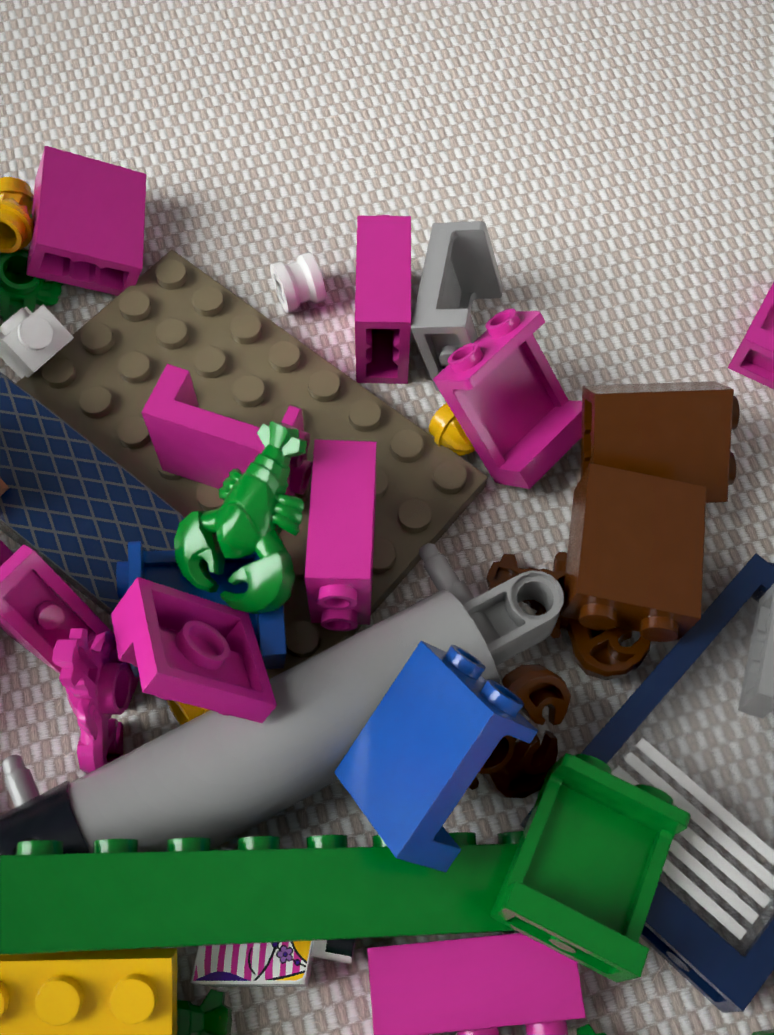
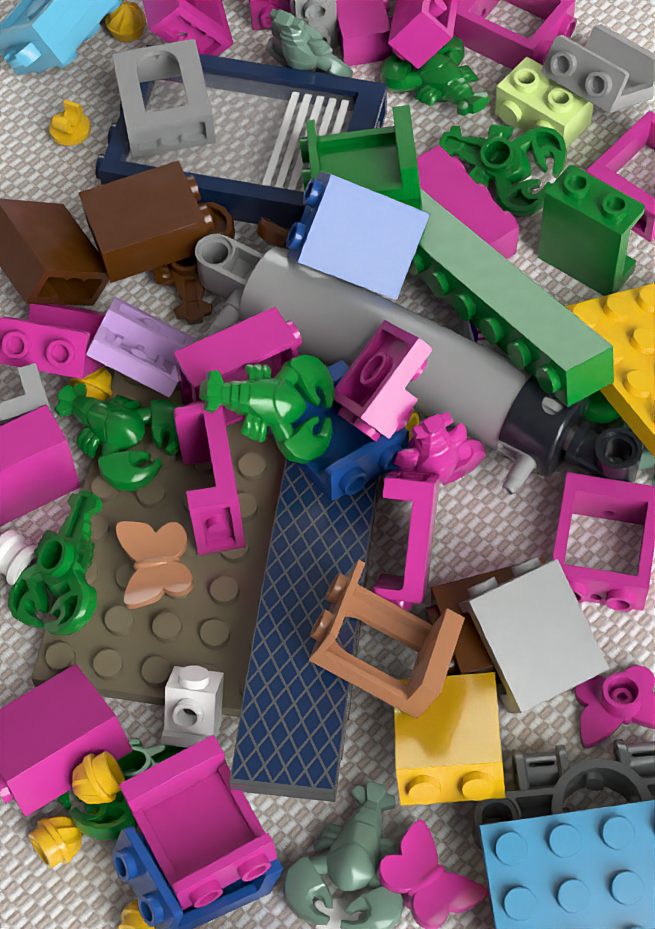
camera: 115 degrees left, 5 degrees down
(206, 365) = (156, 562): none -> nougat animal
(242, 289) = (62, 570): none -> green animal
(368, 407) = (117, 428): none -> green animal
(452, 465) = (139, 346): none -> lavender slope

